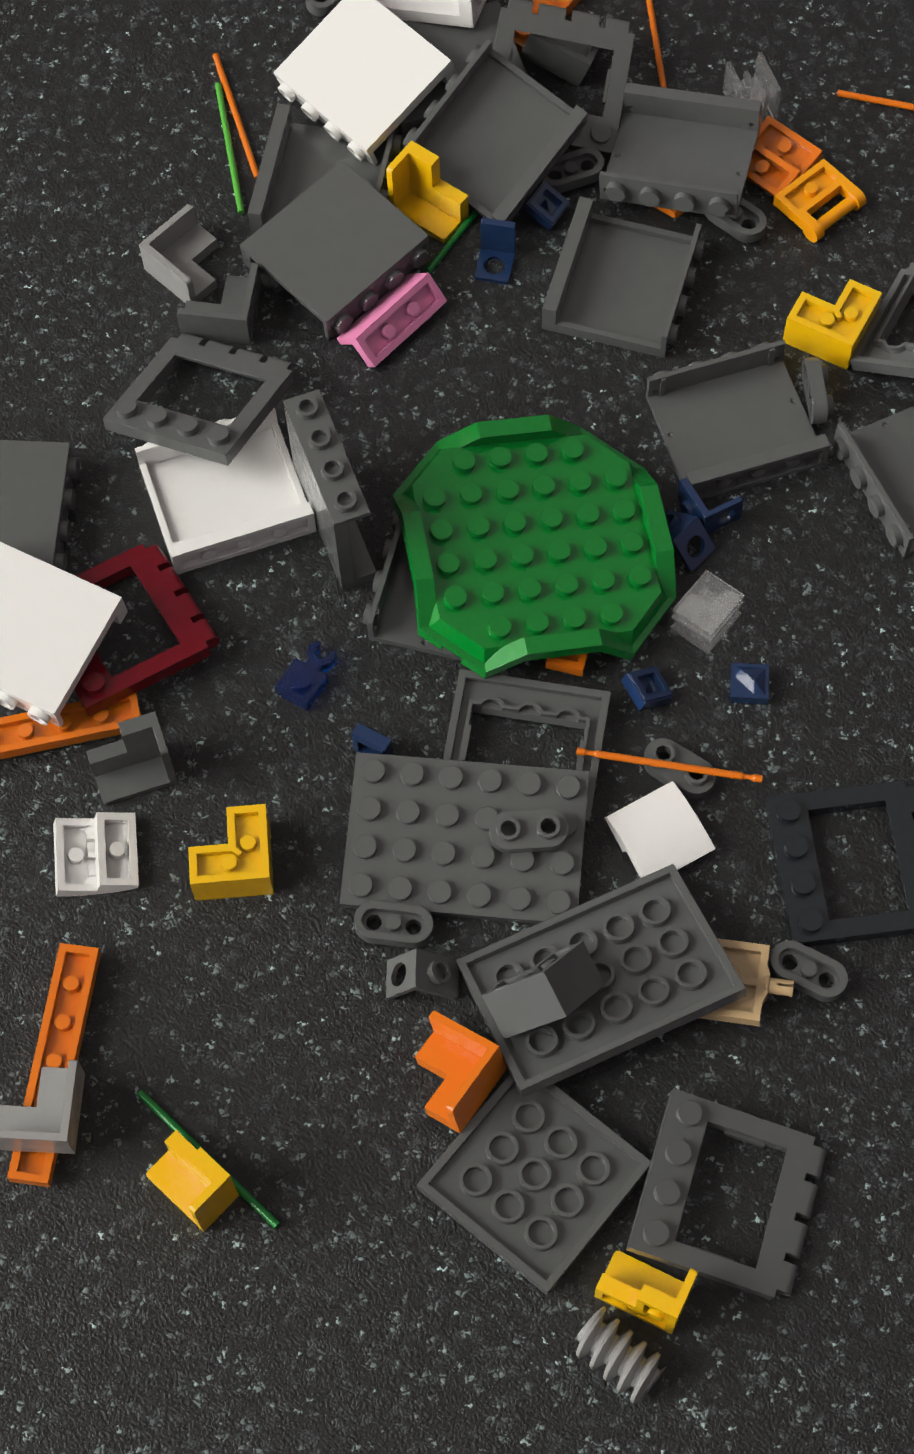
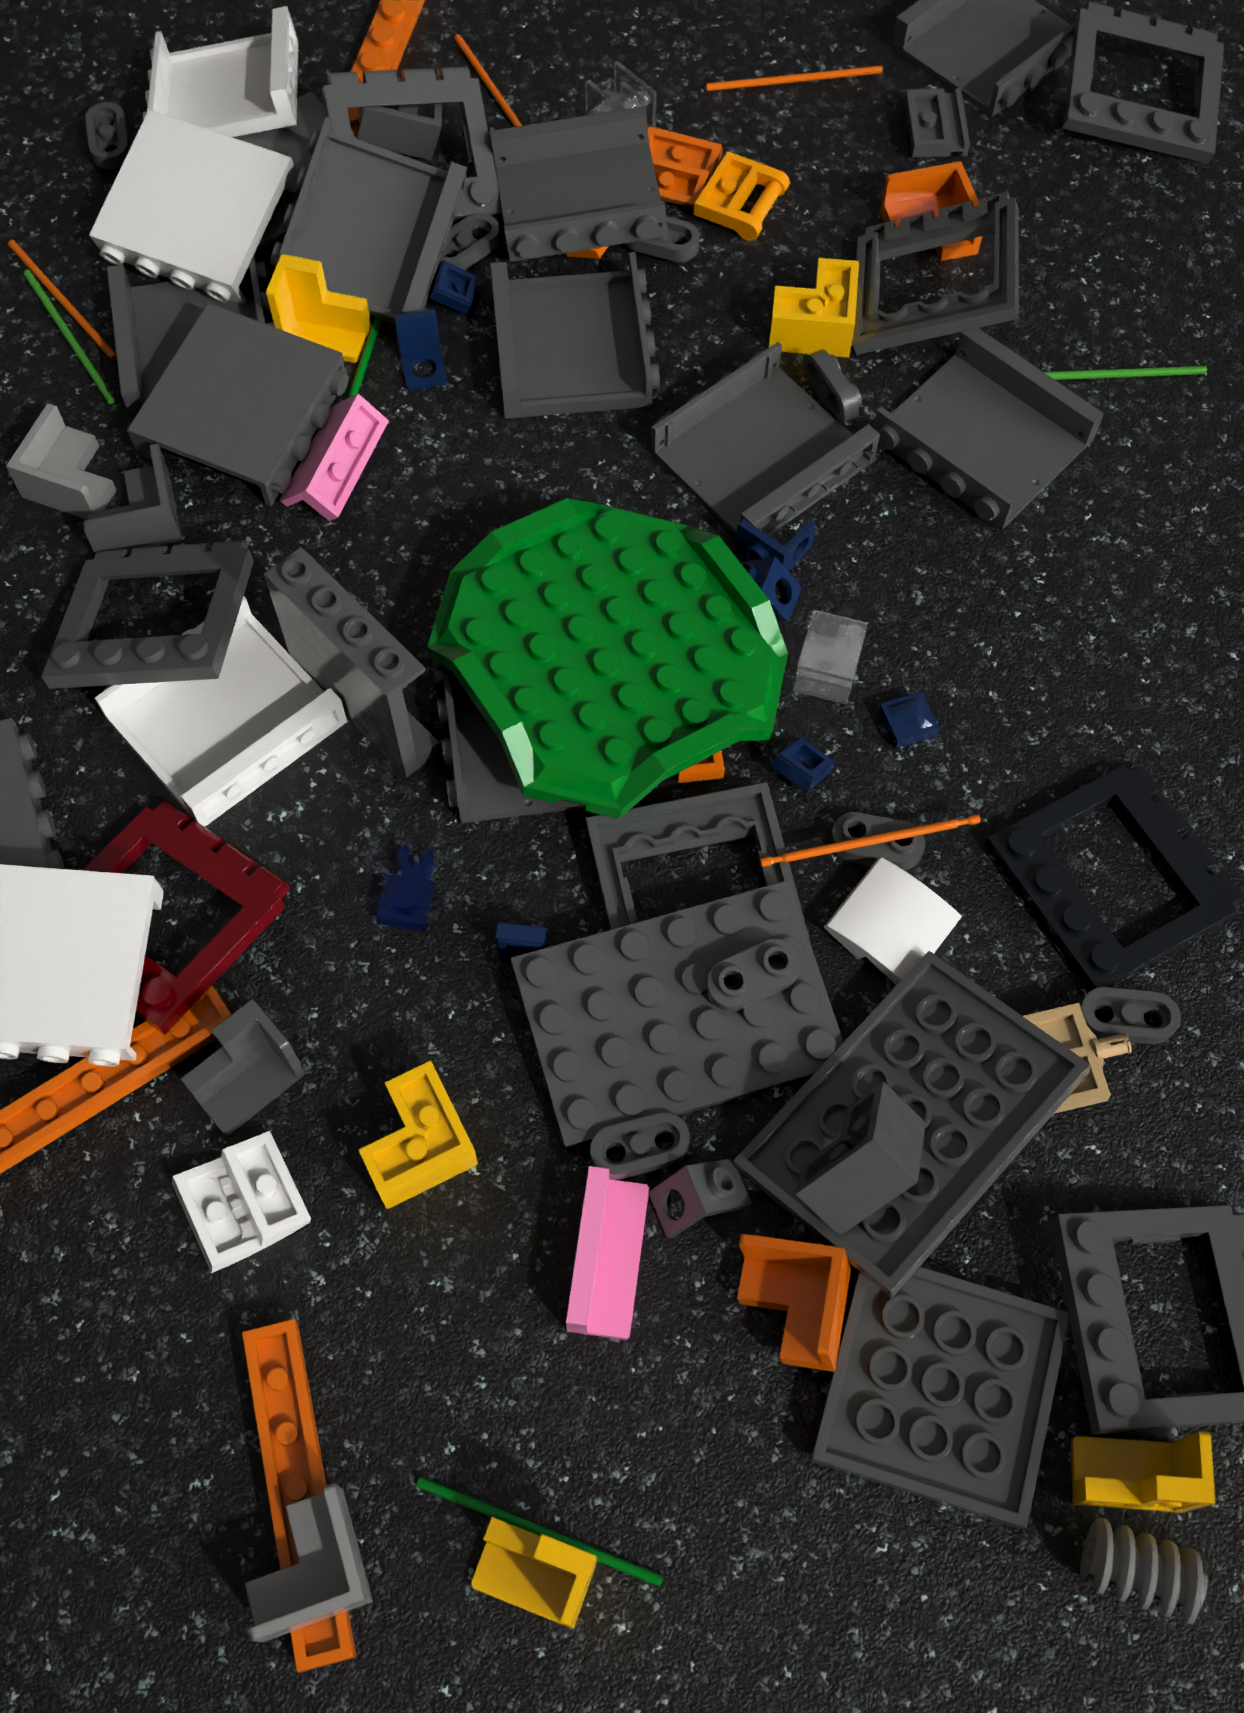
camera: 25 degrees left, 0 degrees up
(335, 991) = (607, 1256): none -> bright pink panel

